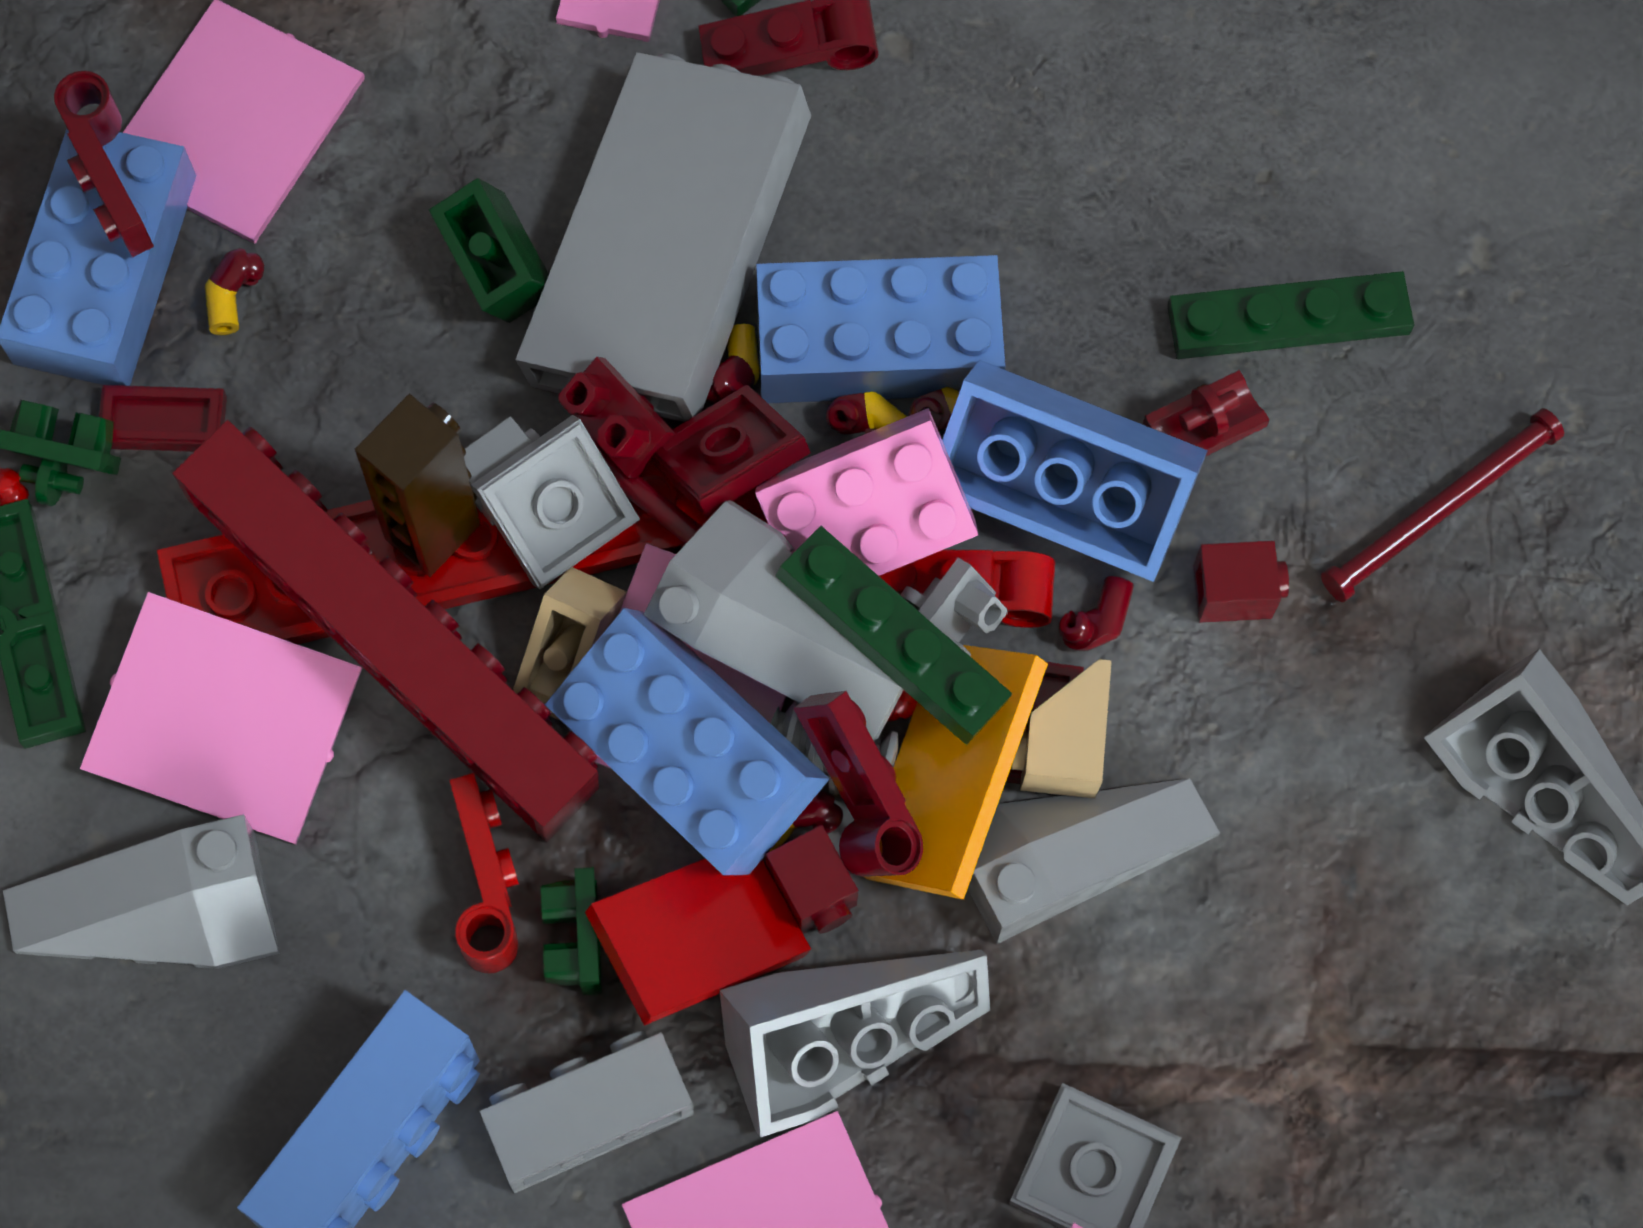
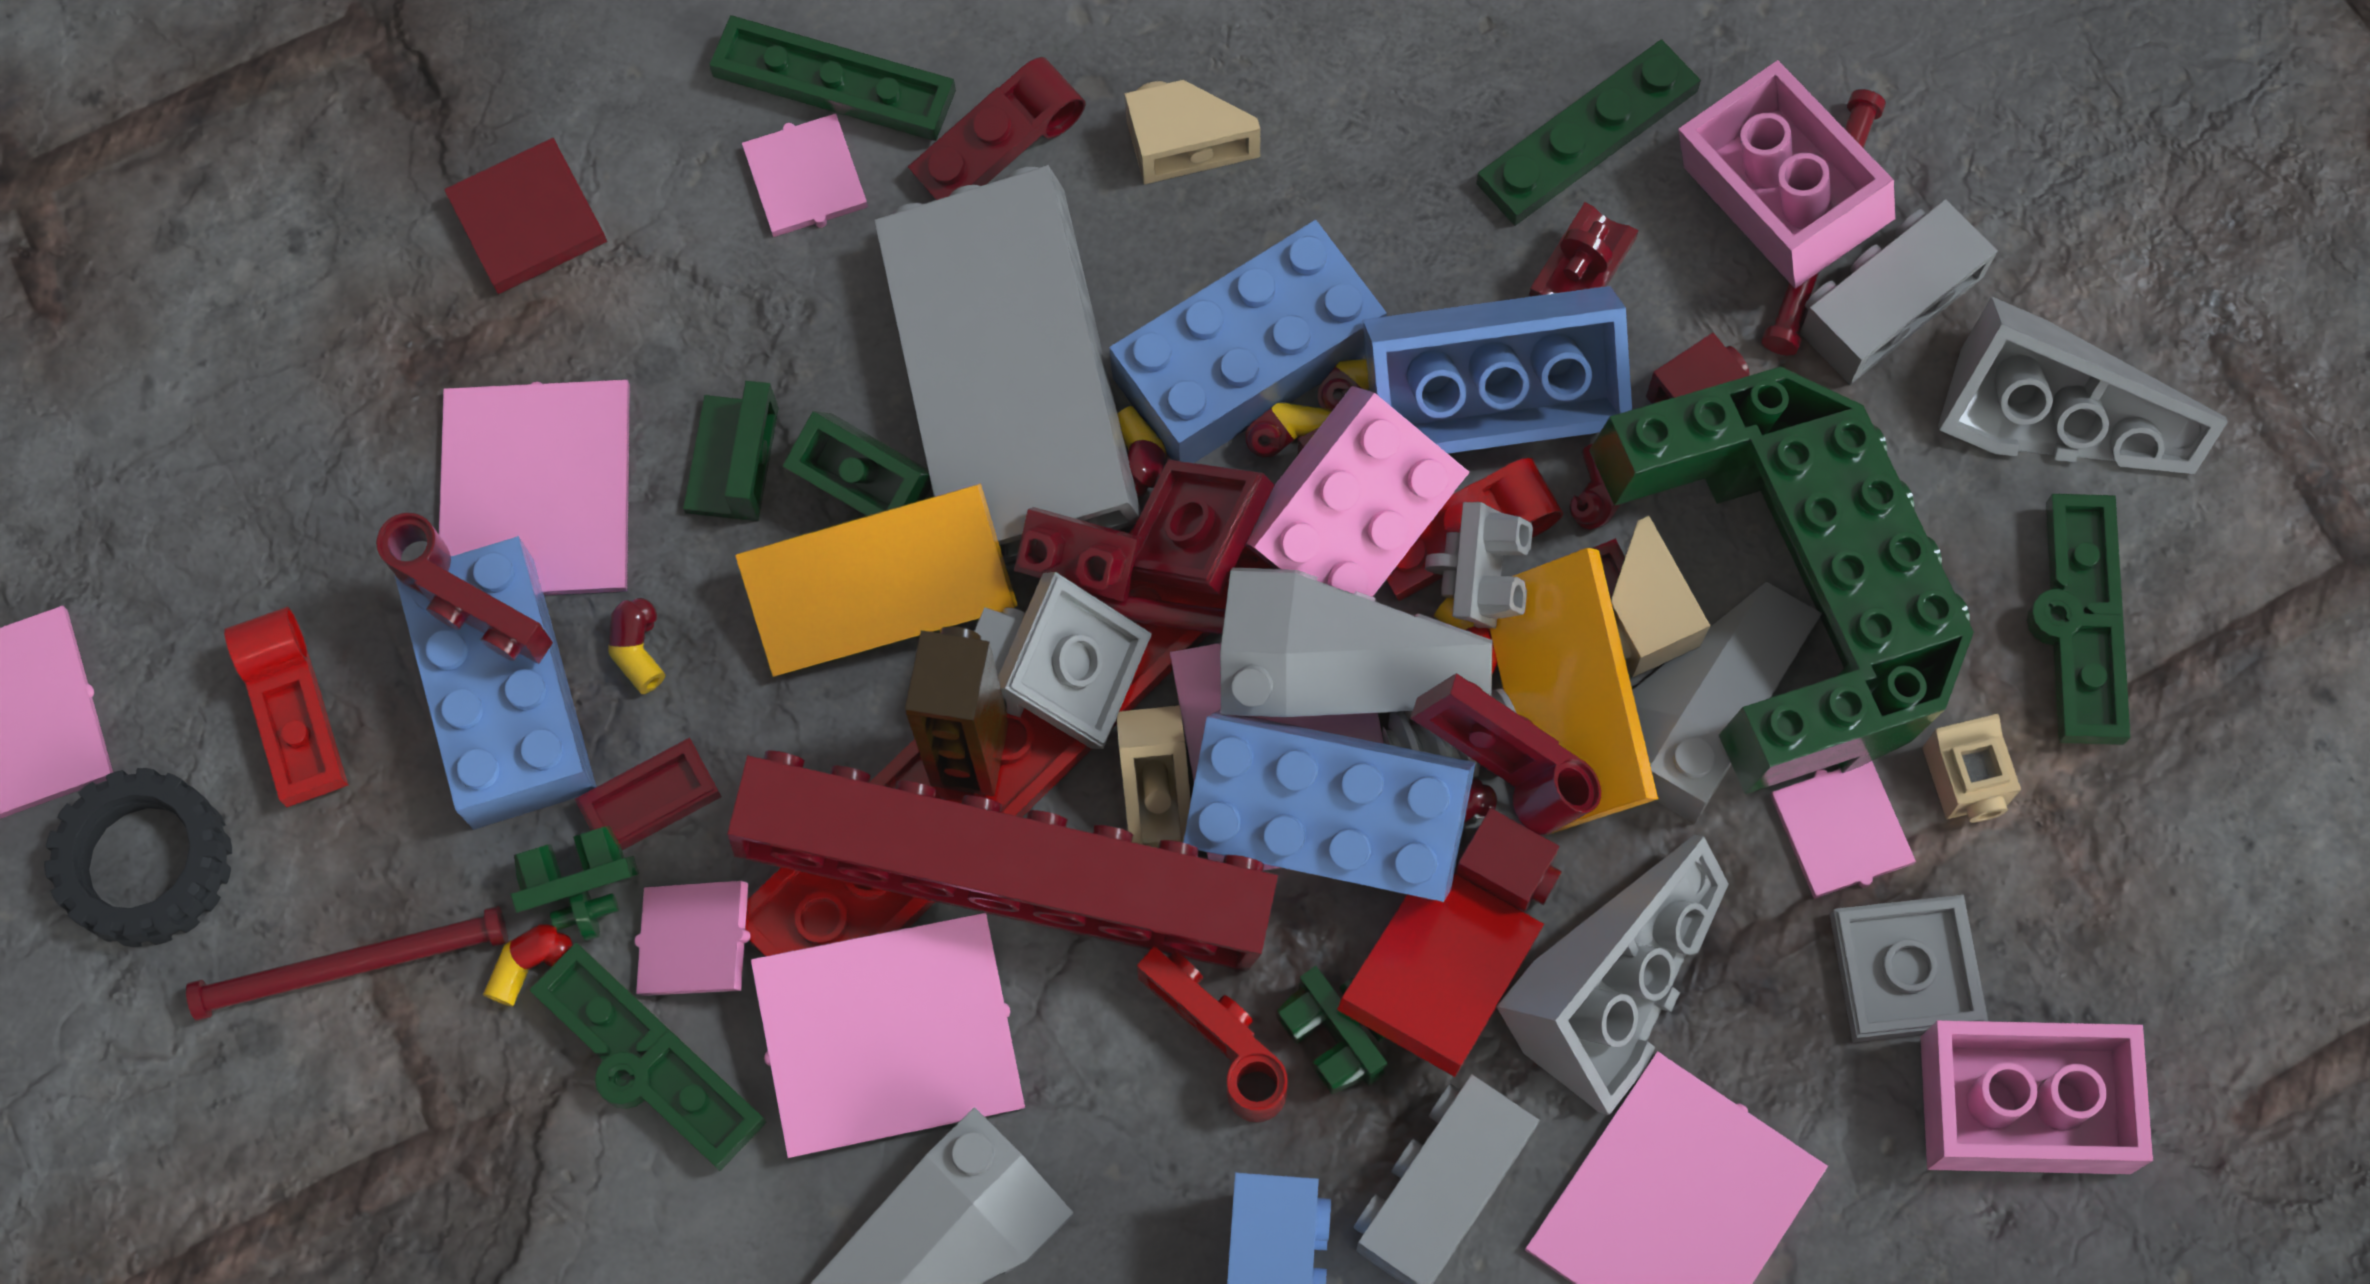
camera: 25 degrees left, 0 degrees up
(120, 550) = (692, 938): none -> bright pink piece
(408, 181) = (732, 454): none -> dark green panel
(447, 346) = (876, 580): none -> light orange tile
(893, 635) = (1457, 601): dark green plate -> none
(945, 123) = (1187, 130): none -> tan slope
(1118, 1022) = (1842, 829): none -> bright pink piece
(1258, 1037) = (1972, 769): none -> tan window
(1267, 783) = (1851, 541): none -> dark green wedge
(1428, 443) = (1787, 173): none -> bright pink brick
(1442, 970) = (2085, 619): none -> dark green hinge
(1464, 597) = (1896, 290): none -> light grey brick

